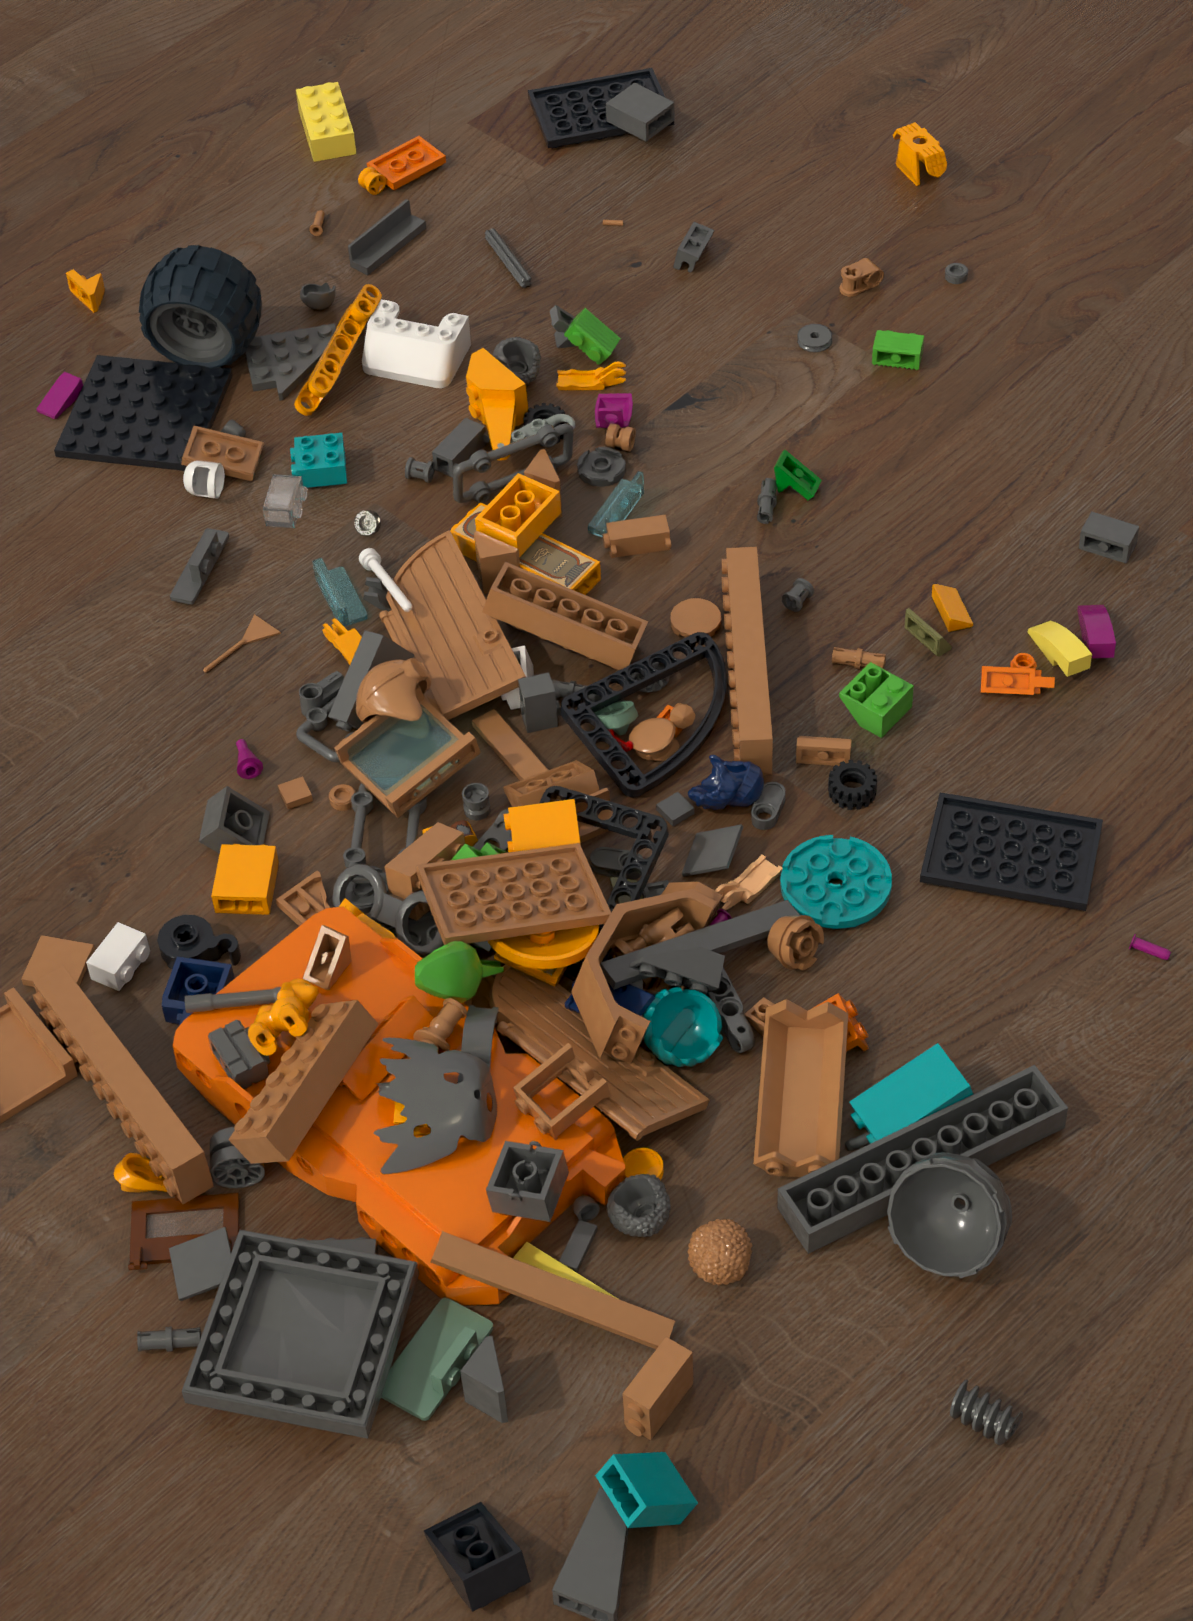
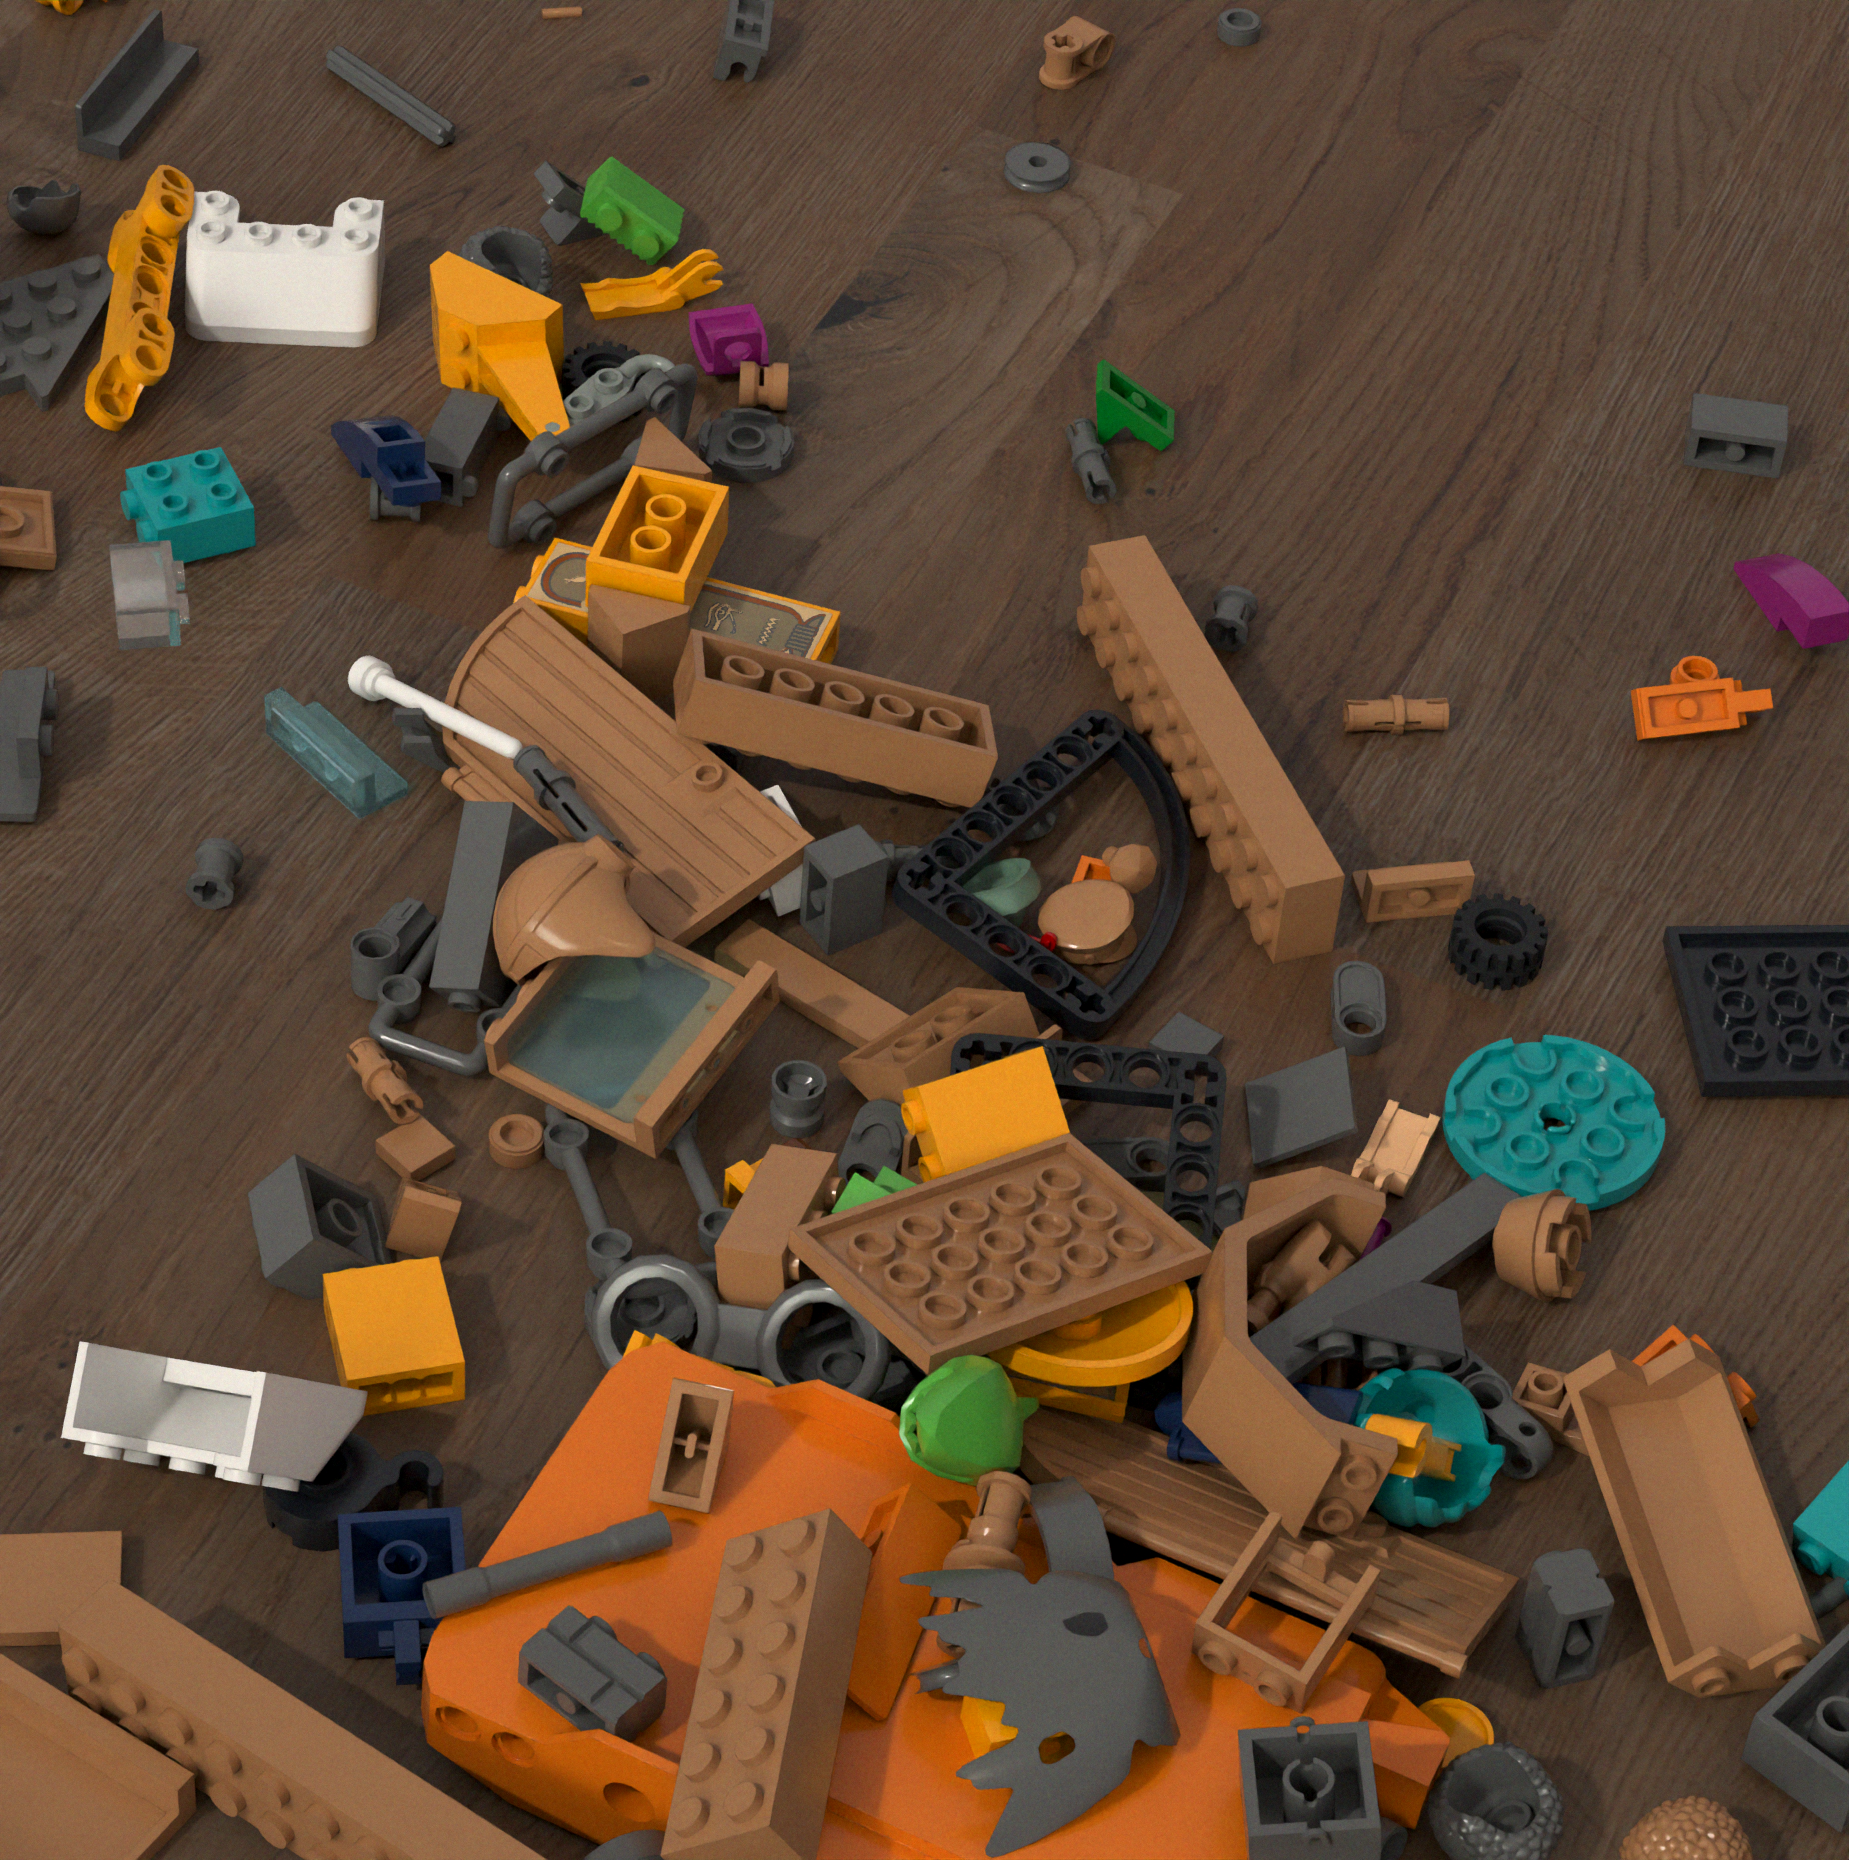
camera: 25 degrees left, 5 degrees down
(118, 956) = (196, 1543): white brick -> none
(141, 899) = (207, 1415): none -> white windscreen
(248, 764) = (295, 1108): magenta cone -> none
(256, 631) = (181, 865): medium nougat piece -> none
(259, 643) = (217, 864): none -> dark grey bush
(282, 825) = (422, 1219): none -> medium nougat slope
(286, 1014) = (673, 1575): light orange animal -> none
(292, 757) = (384, 1080): none -> medium nougat pin
(304, 899) = (542, 1362): medium nougat wing -> none
(342, 639) = (402, 843): light orange arm -> none
(367, 522) = (325, 611): clear smoke tile -> none
(418, 451) = (392, 455): none -> dark blue slope
(420, 633) = (541, 772): none -> dark grey pin
(618, 504) = (812, 513): clear light blue panel -> none
(637, 536) = (882, 558): medium nougat brick -> none
(666, 1027) = (1417, 1449): none -> light orange piece
(695, 616) = (1055, 690): medium nougat tile -> none
(714, 1123) = (1564, 1617): none -> dark grey brick
(729, 784) = (1276, 979): dark blue hair -> none
(877, 699) = (1472, 778): bright green slope -> none
(897, 349) = (1204, 166): bright green brick -> none
(926, 634) = (1496, 649): olive slope -> none
(951, 607) = (1514, 600): light orange slope -> none
(1061, 647) = (1749, 635): light yellow slope -> none

